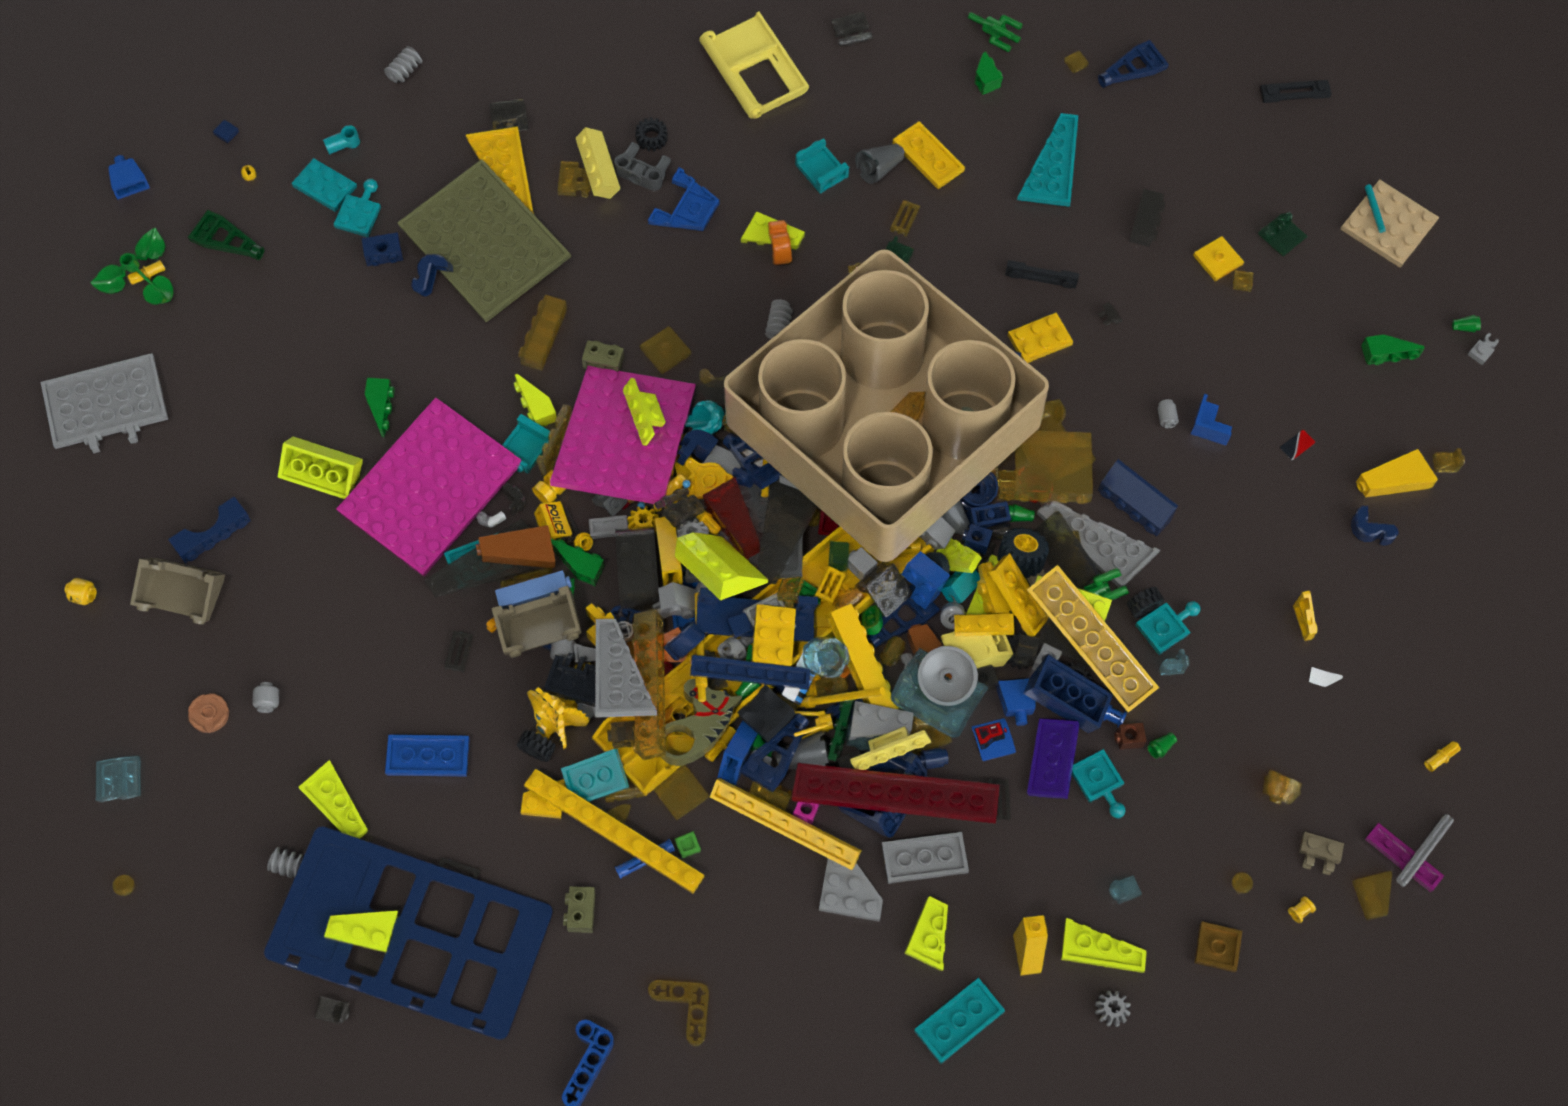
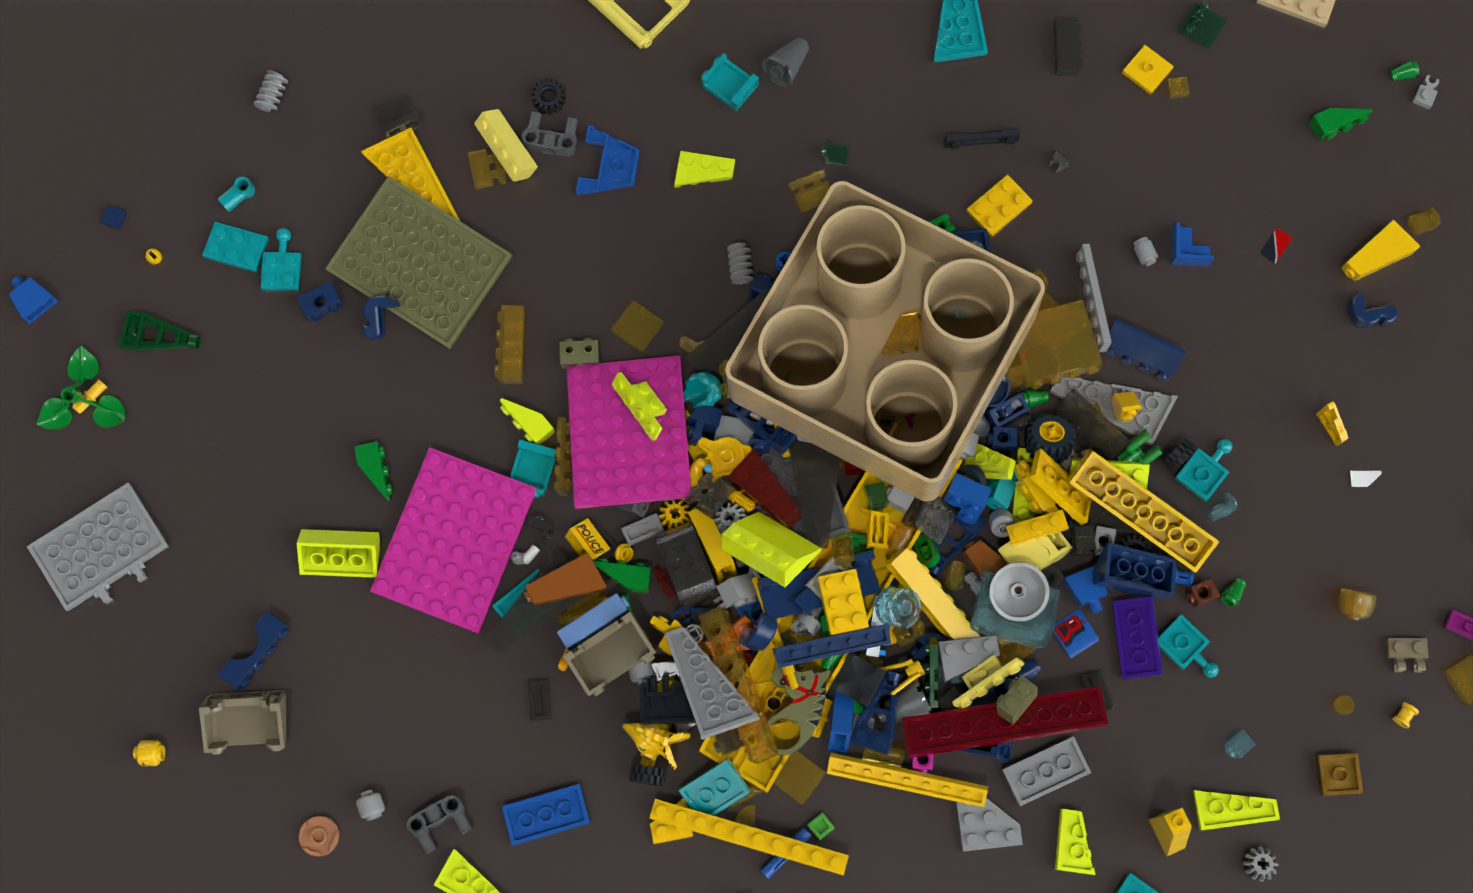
camera: 15 degrees left, 10 degrees up
(323, 725) = (435, 815): none -> dark grey piece
(545, 492) = (567, 510): yellow wheel -> none
(611, 574) = (661, 576): none -> clear red slope
(780, 242) = (715, 179): orange animal -> none
(811, 701) = (894, 651): yellow bar -> none
(900, 229) = (827, 129): clear yellow tile -> none
(913, 773) = (1016, 700): none -> olive brick
(929, 155) = (832, 39): yellow plate -> none
(1103, 442) = (1094, 299): none -> light grey plate
(1104, 542) = (1125, 406): none -> yellow slope

